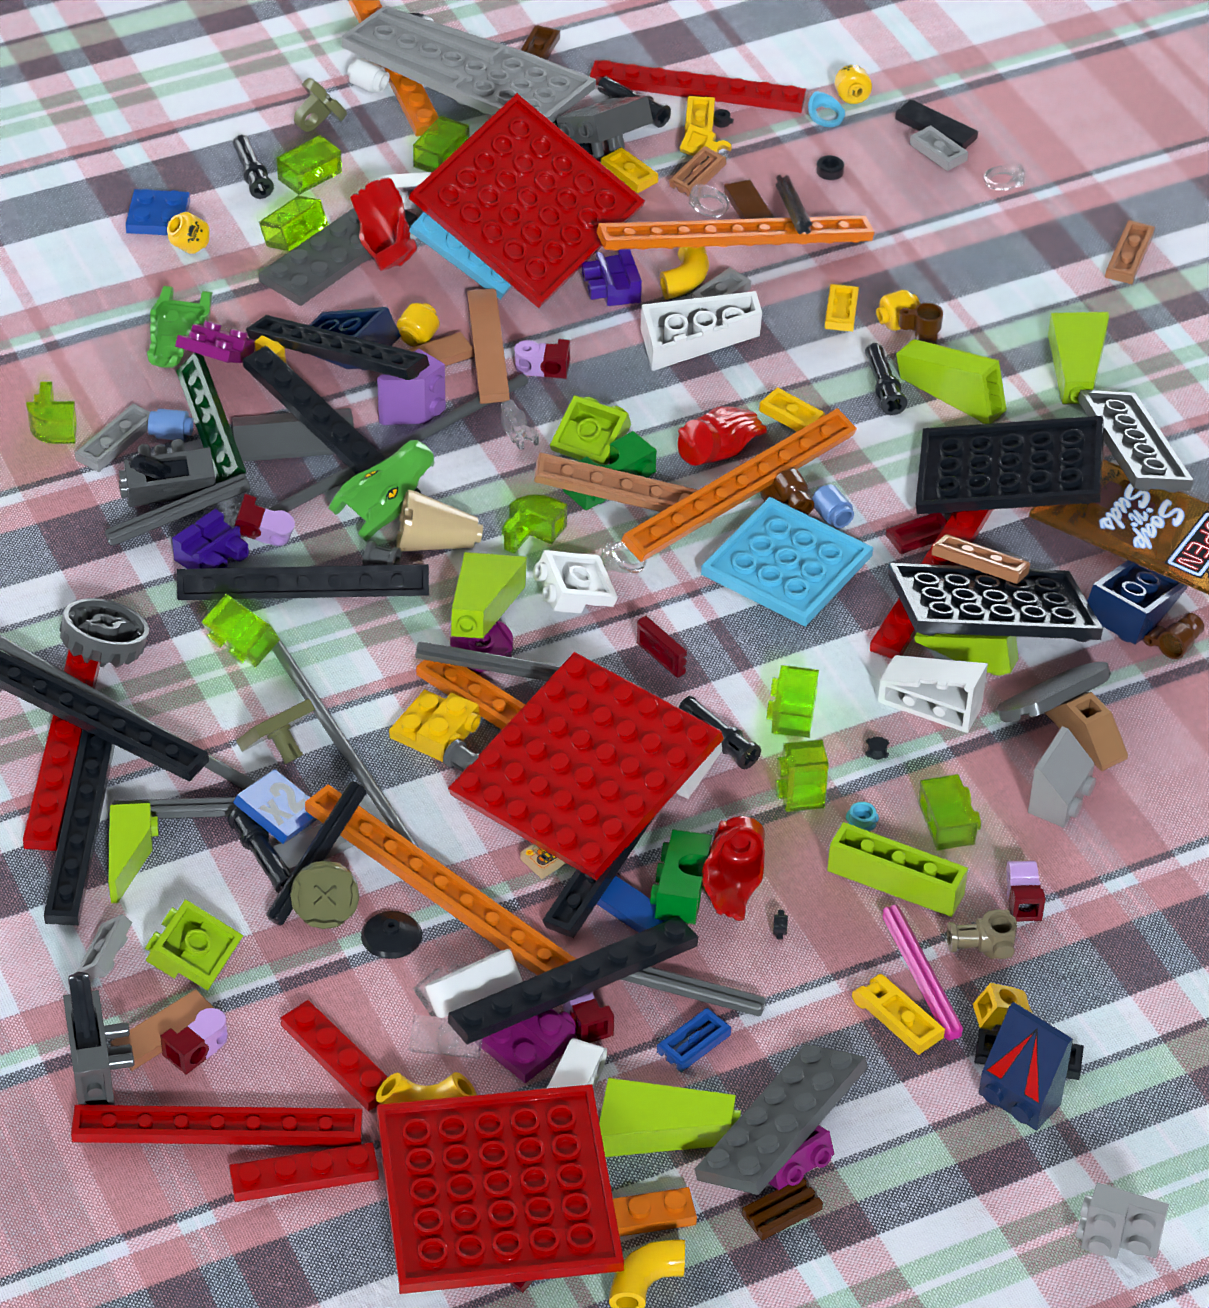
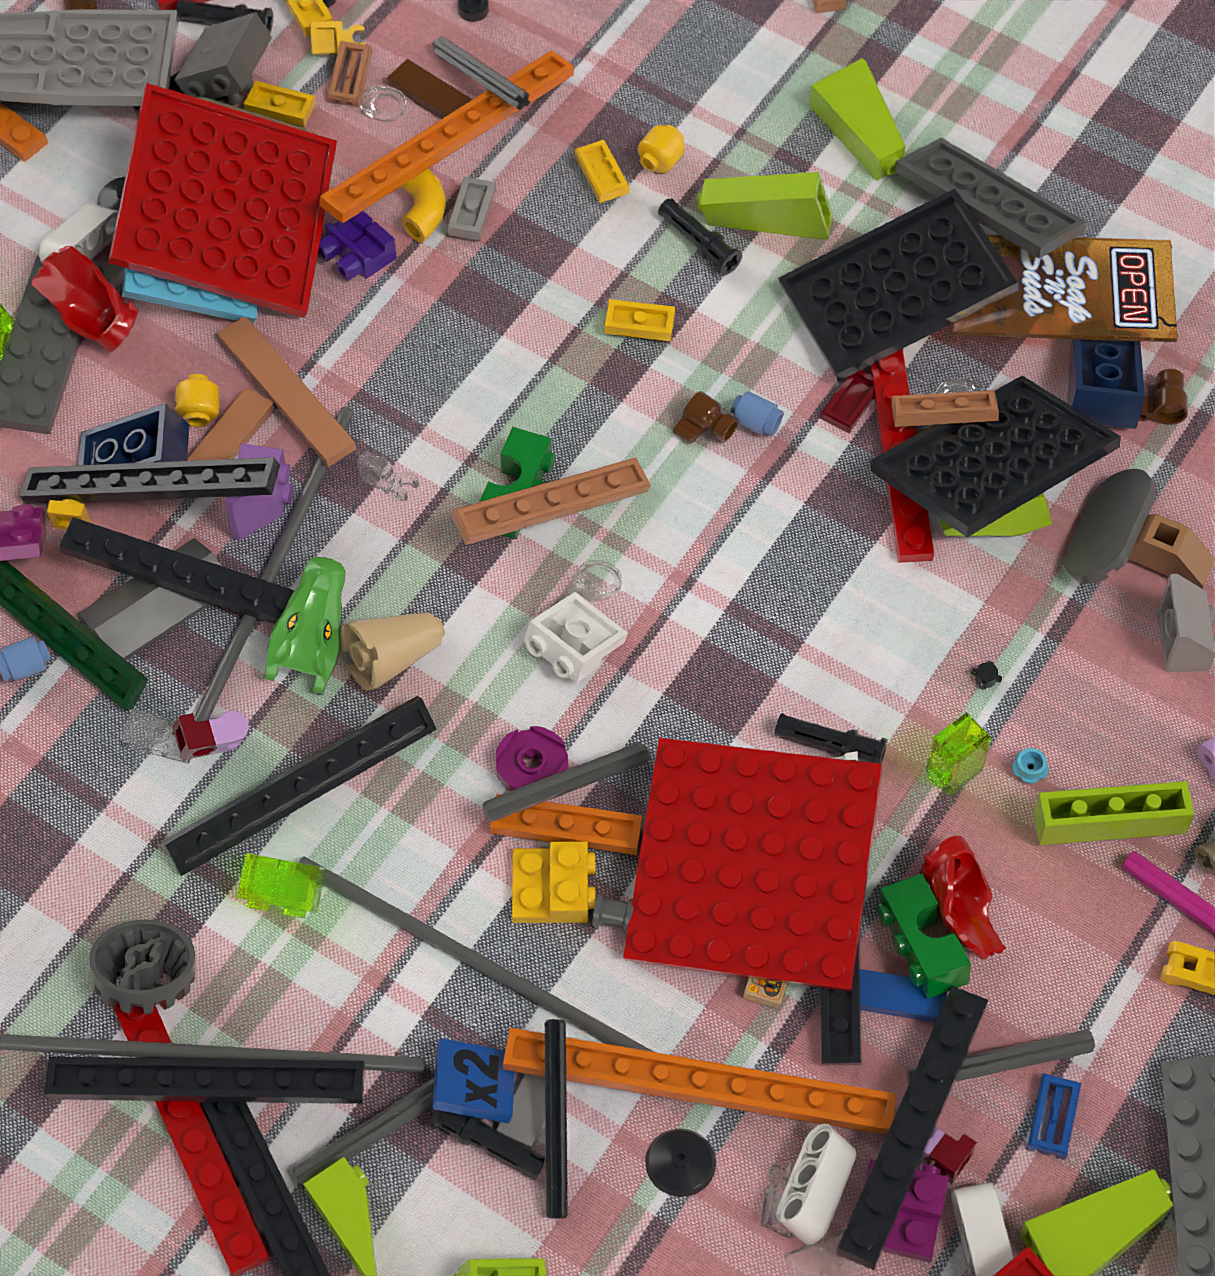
camera: 30 degrees left, 15 degrees up
(165, 475) = (72, 734): dark grey piece -> none
(177, 509) = (106, 765): dark grey axle -> none
(209, 543) = (168, 790): dark purple hips -> none
(278, 730) = (406, 986): olive tile -> none
(325, 894) = (598, 1163): olive tile -> none
(380, 555) = (359, 709): dark grey bush -> none
(439, 143) = (67, 165): clear neon green brick -> none
(485, 592) = (496, 699): lime slope -> none
(535, 517) = (478, 578): clear neon green brick -> none
(543, 358) = (353, 379): leg -> none
(590, 429) = (464, 445): lime plate -> none
(661, 646) = (710, 669): dark red tile -> none
(698, 326) = (482, 266): white wedge -> none
(718, 435) = (589, 383): red hair -> none
(737, 485) = (655, 440): orange plate -> none
(780, 924) = (1042, 934): black piece -> none
(787, 561) = (757, 502): medium azure plate -> none
(794, 701) = (879, 665): clear neon green brick -> none
(924, 319) = (700, 155): reddish brown piece -> none
(935, 689) = (1002, 581): white wedge -> none
(948, 812) = (1106, 716): clear neon green brick -> none

